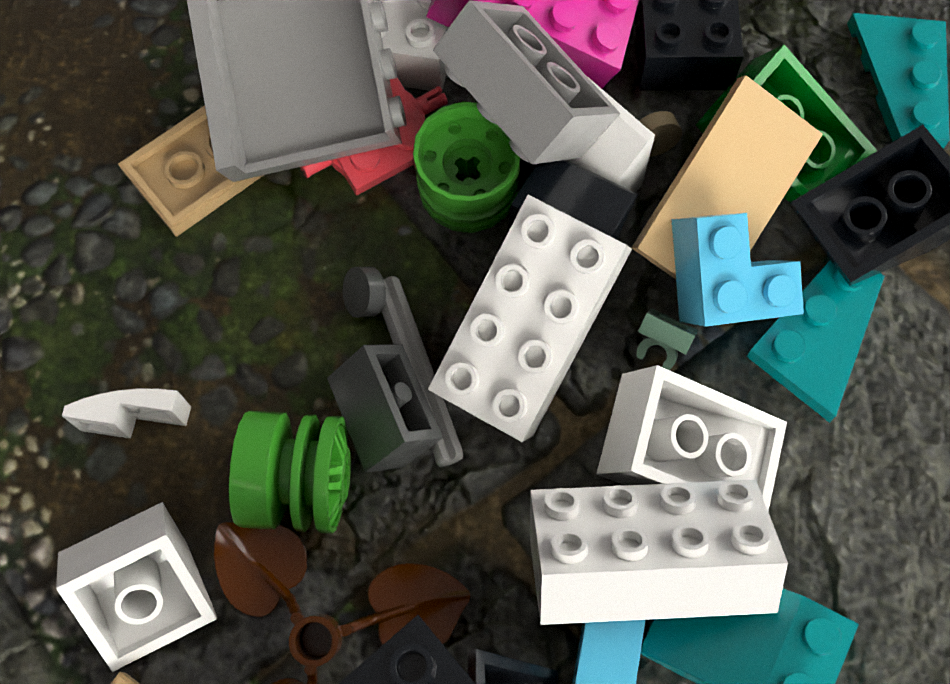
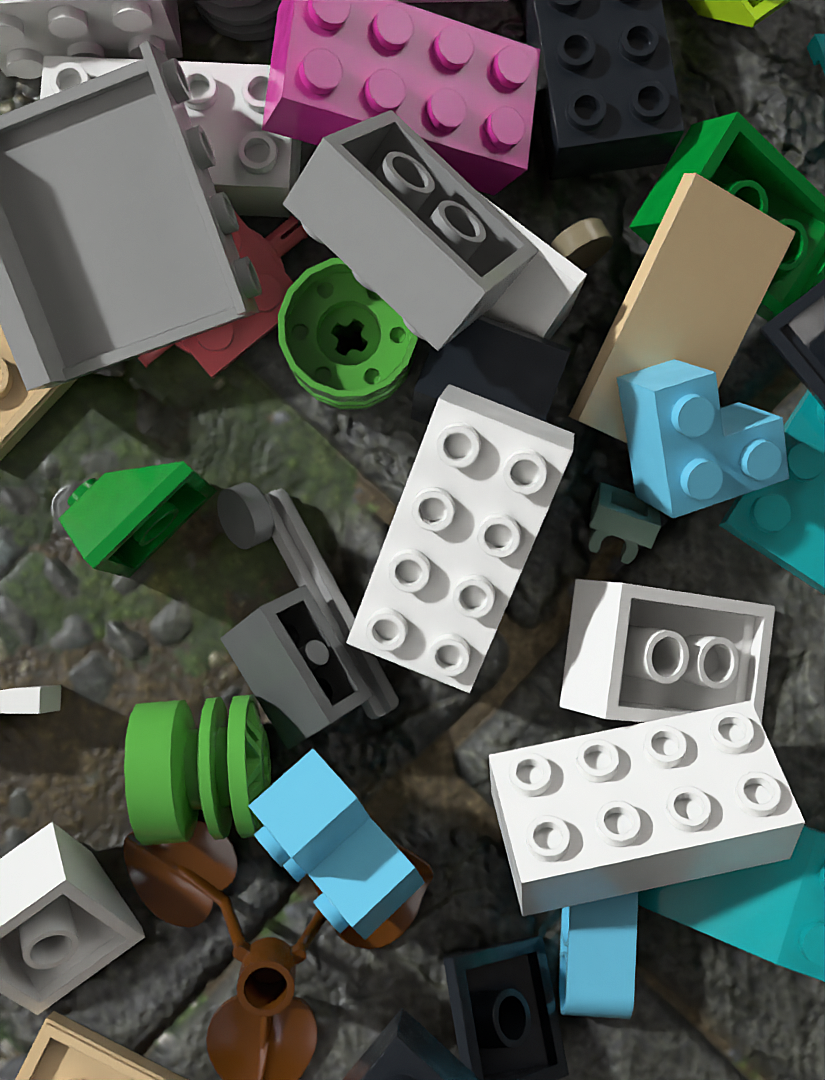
camera: 10 degrees left, 15 degrees up
(283, 273) = (132, 513): none -> green slope
(388, 544) = (325, 832): none -> medium azure brick

